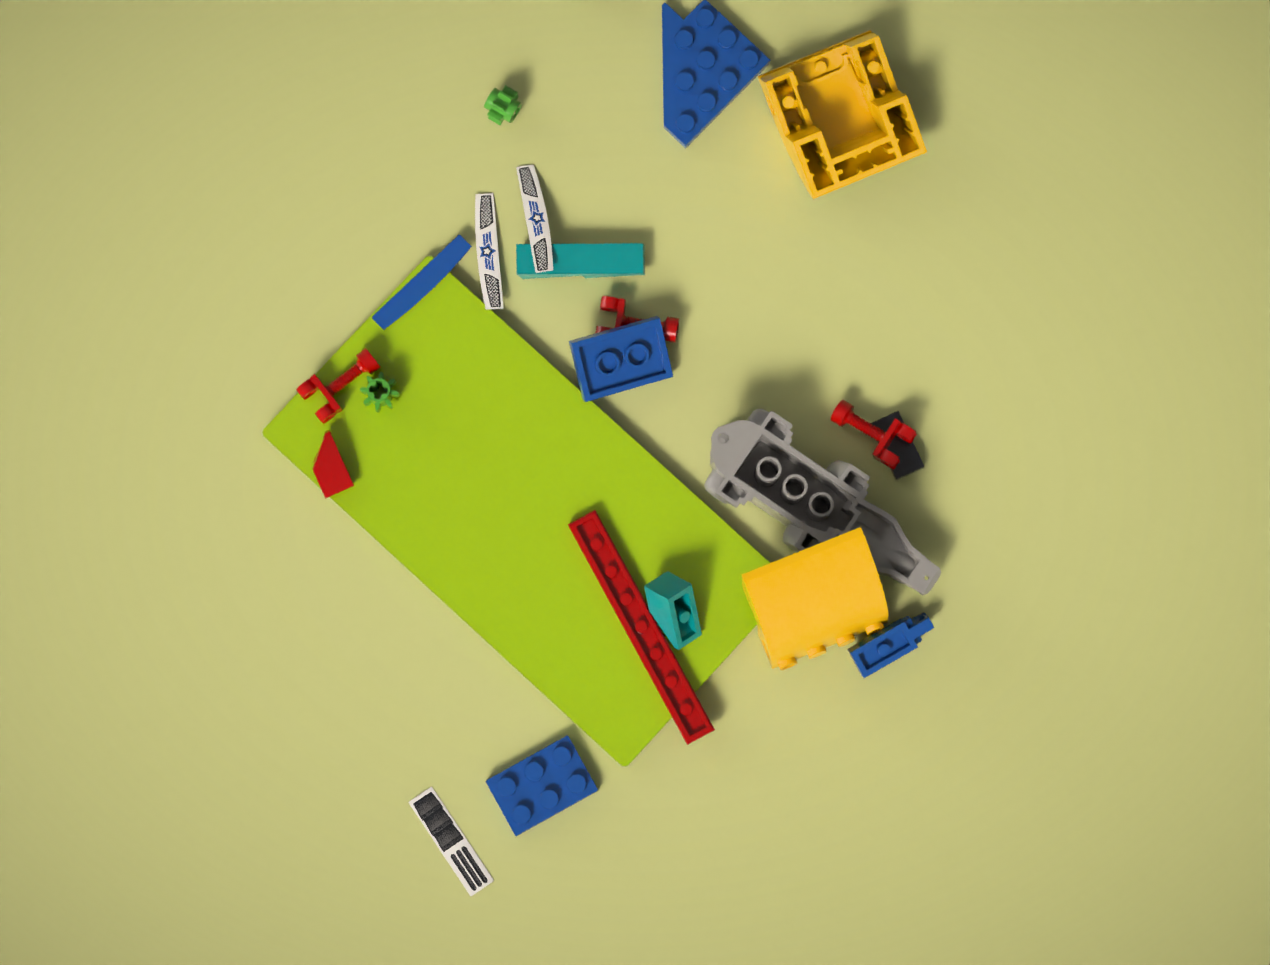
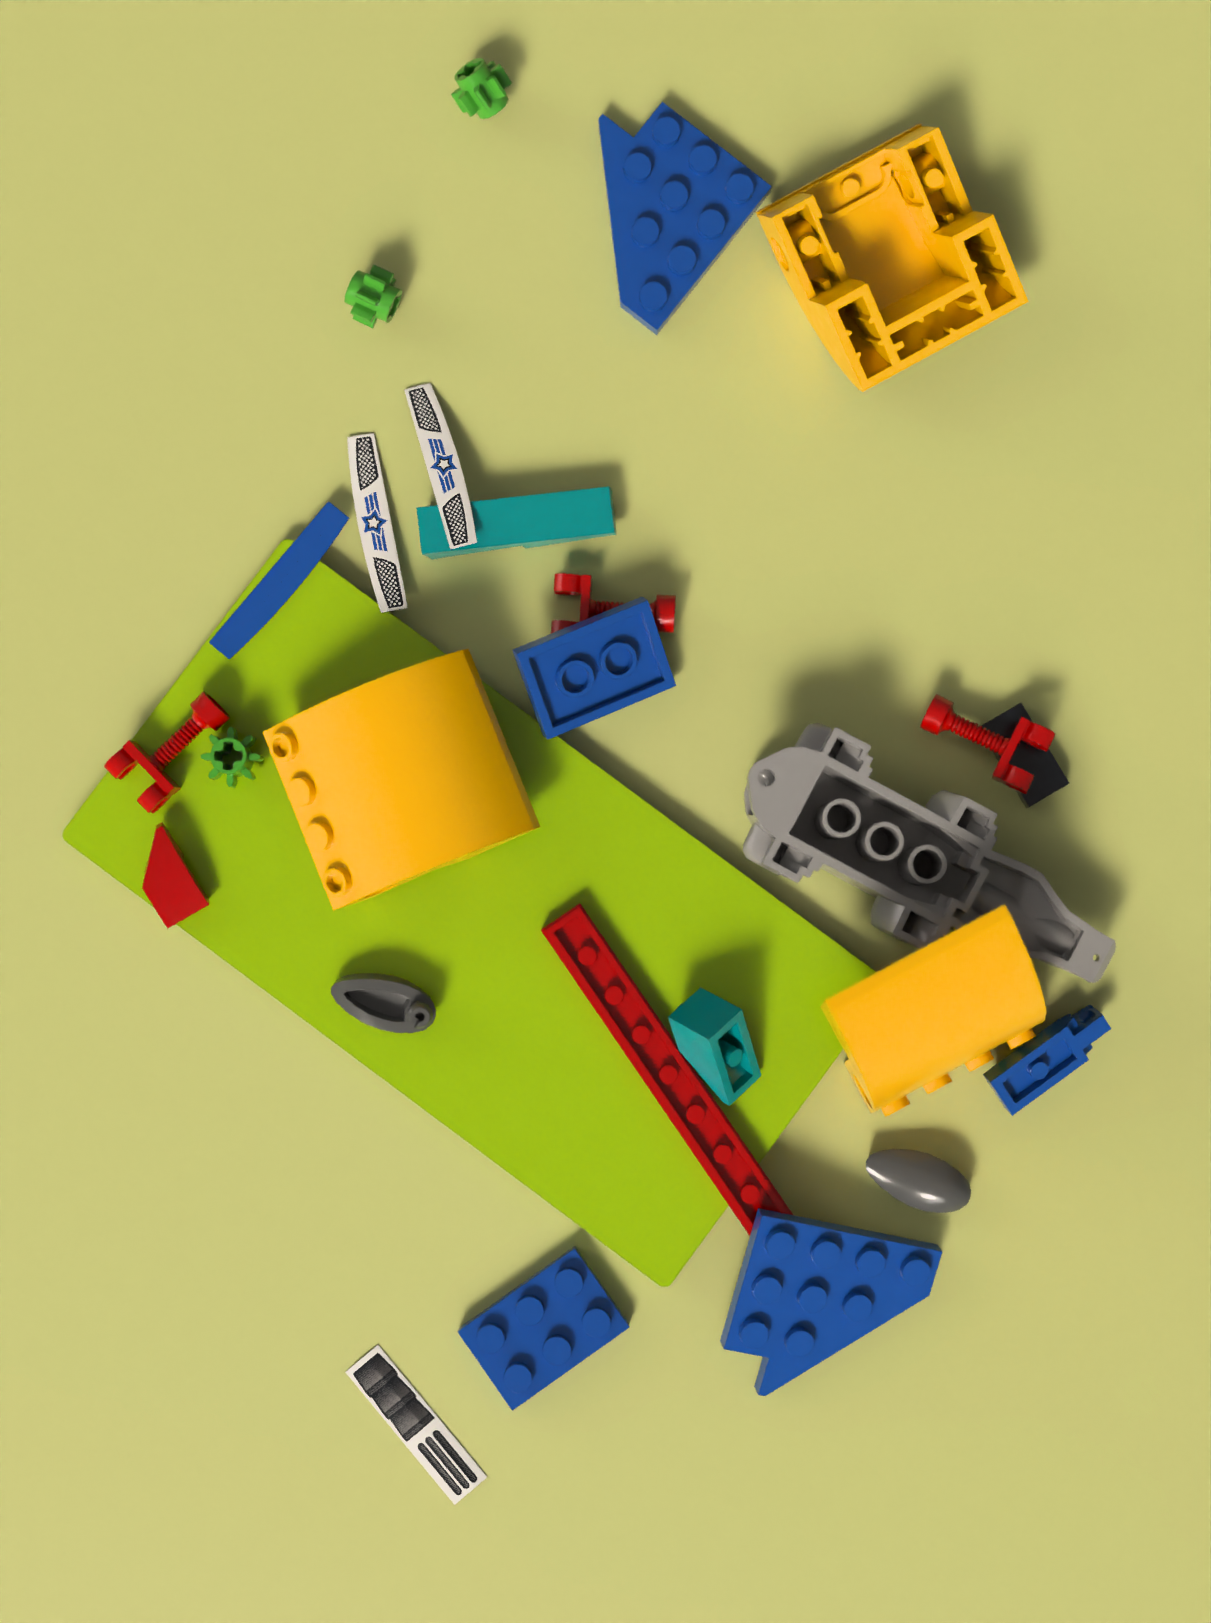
camera: 10 degrees left, 5 degrees up
(461, 560) = (385, 1002): none -> dark grey arm
(488, 415) = (400, 778): none -> yellow slope
(724, 778) = (818, 1289): none -> blue wing
(798, 714) = (919, 1180): none -> dark grey arm

